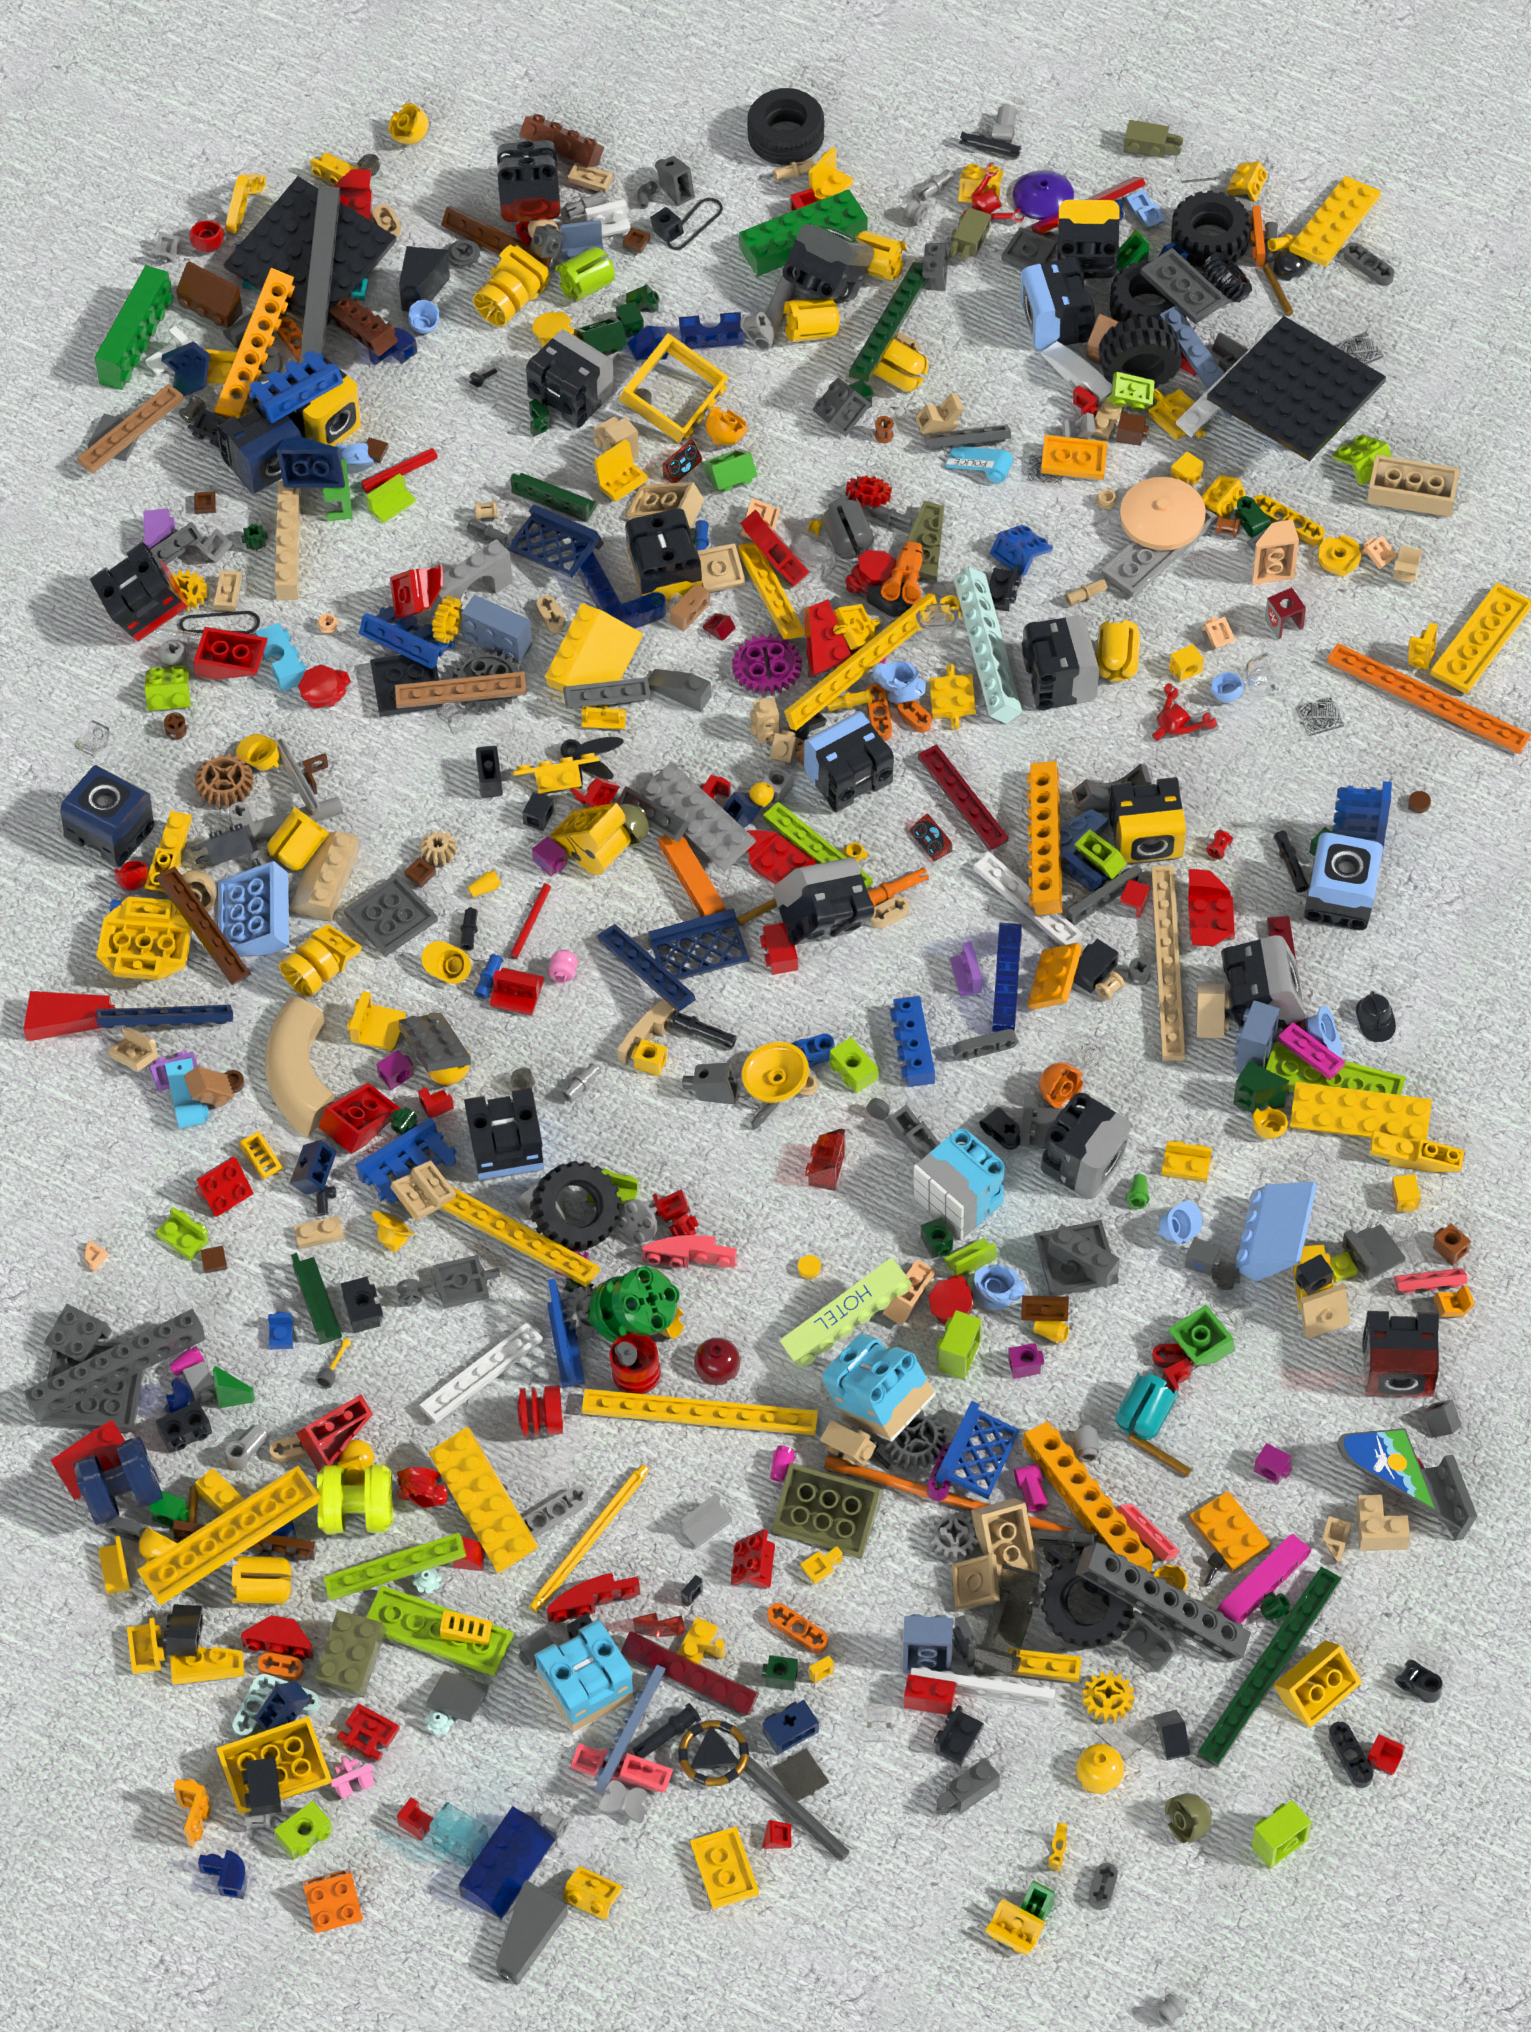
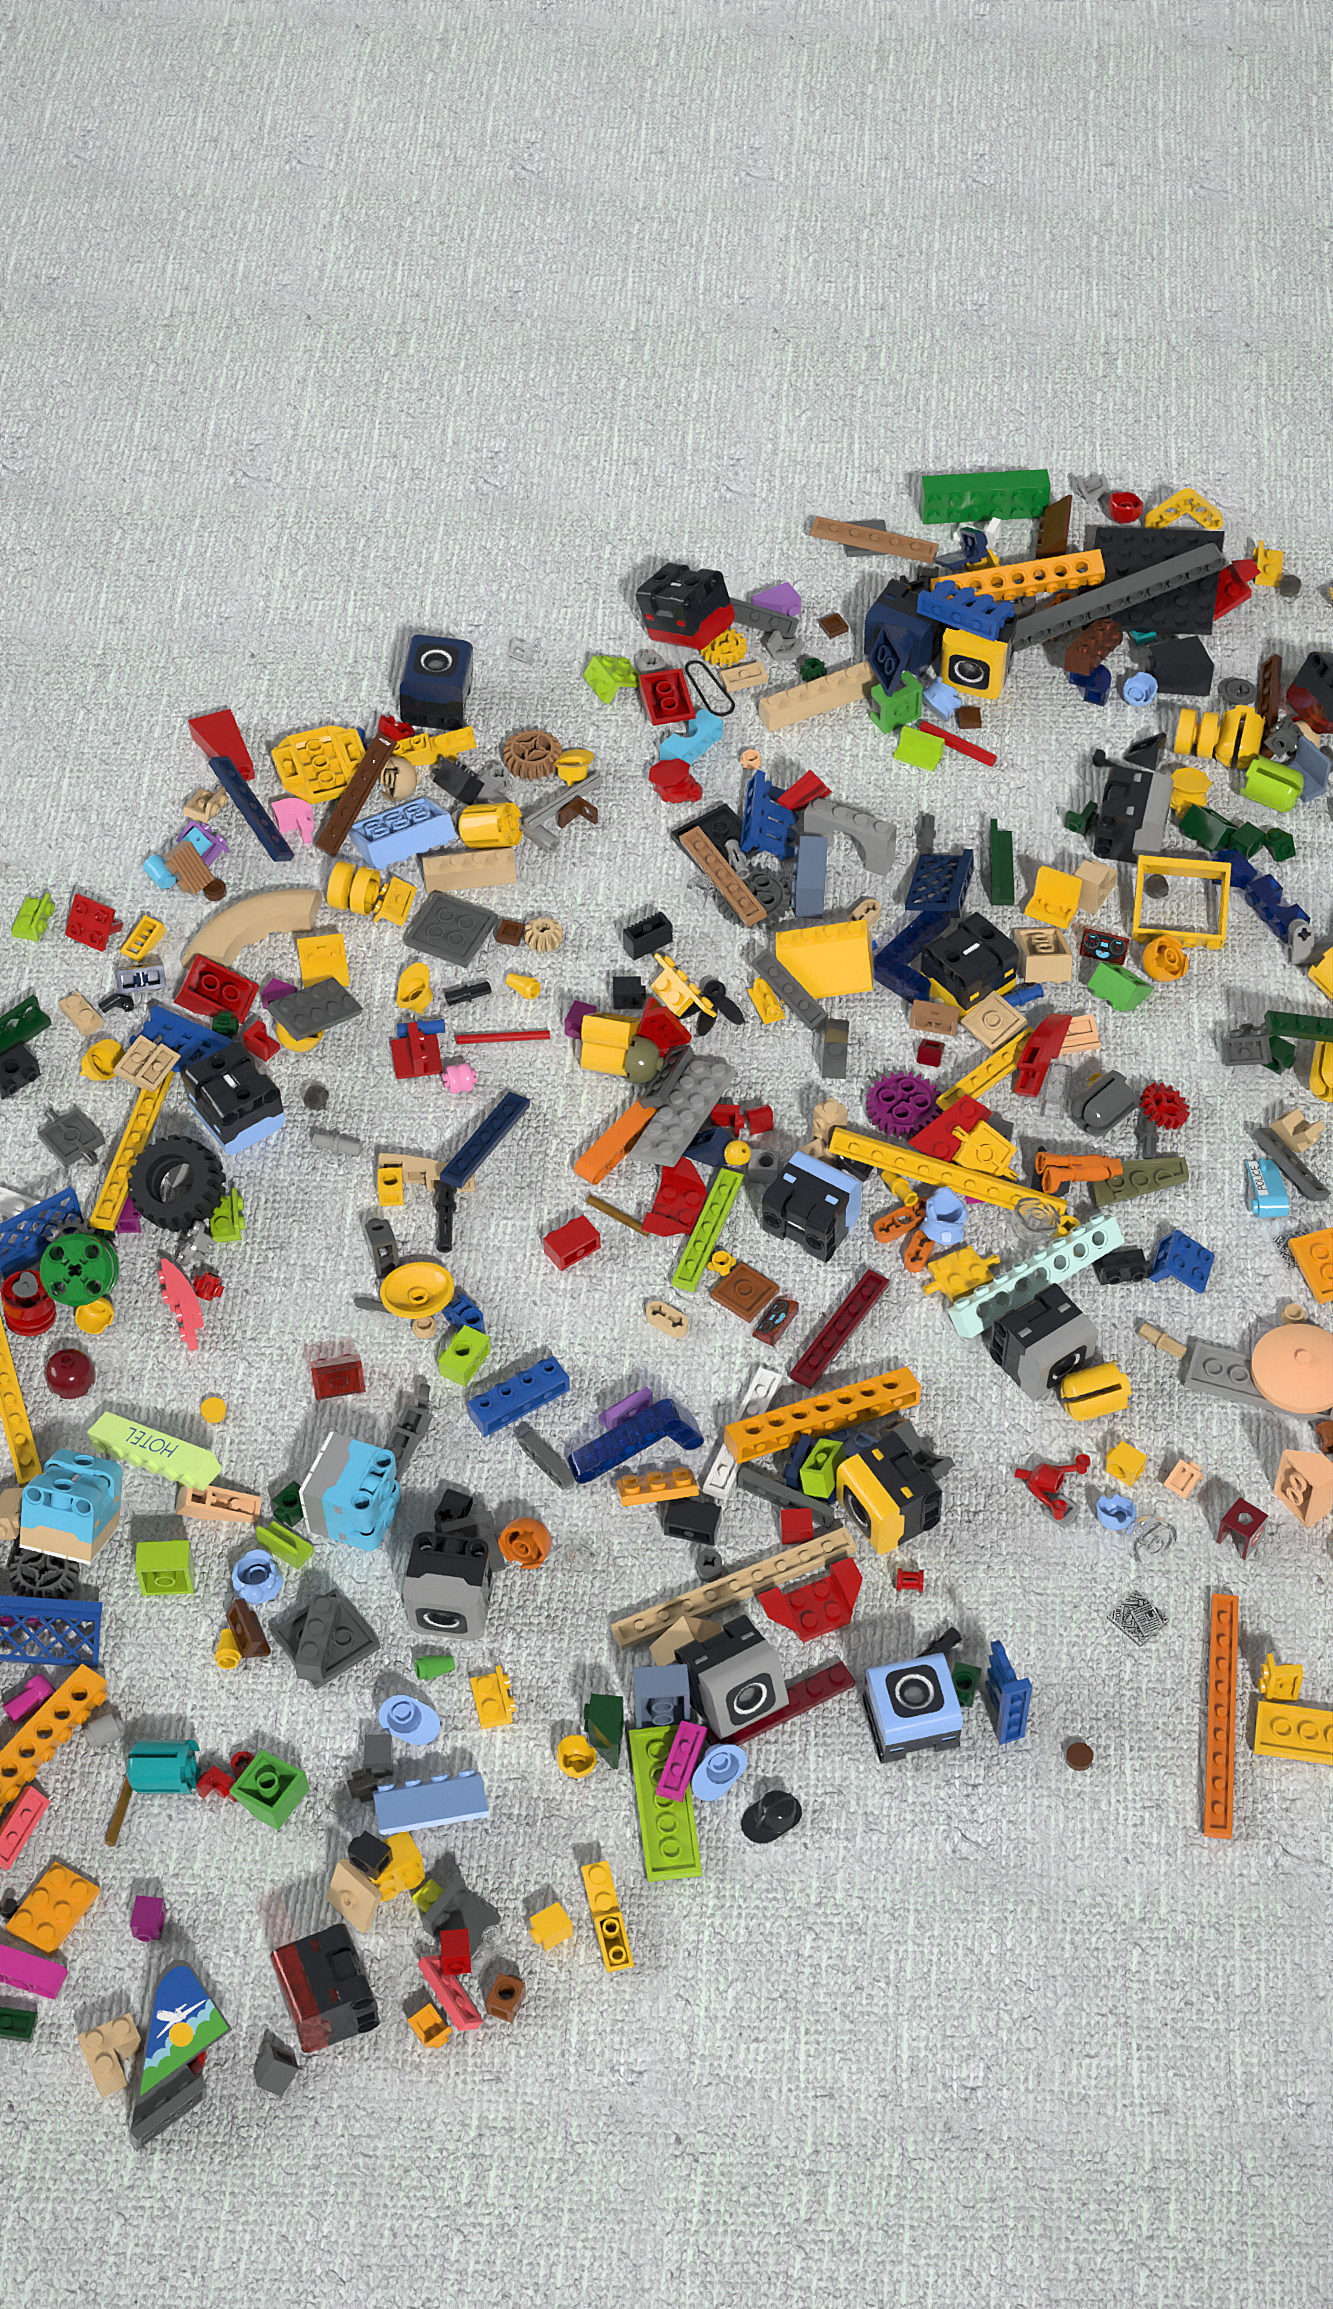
camera: 65 degrees right, 5 degrees down
(175, 726) = (574, 699): reddish brown wheel -> none
(187, 984) = (292, 815): none -> bright pink brick
(213, 1259) = (18, 950): reddish brown tile -> none
(389, 221) = (1234, 624): tan plate -> none
(409, 1292) = (40, 1102): dark grey wheel -> none
(445, 672) = (733, 851): none -> light grey pin
(447, 619) = (787, 830): yellow gear -> none
(486, 510) = (950, 822): tan bush -> none
(492, 342) = (1147, 752): none -> black slope
(671, 1205) = (227, 1266): red bracket -> none
(696, 928) = (558, 1167): dark blue fence -> none
(724, 766) = (759, 1119): none -> red brick
(823, 900) = (622, 1241): black piece -> none
(872, 570) = (1066, 1139): red piece -> none
(886, 428) = (1254, 1093): dark orange bush -> none
(887, 890) = (688, 1306): orange pin -> none
(890, 849) = (745, 1292): none -> dark orange tile
(950, 1296) = (220, 1543): red piece -> none
(1023, 1369) = (175, 1628): magenta brick -> none
(1110, 985) = (676, 1545): tan bush -> none
(1336, 1536) = (83, 2017): tan slope -> none
(1359, 1112) = (631, 1843): yellow plate -> none
(1405, 1259) = (455, 1952): none -> red brick

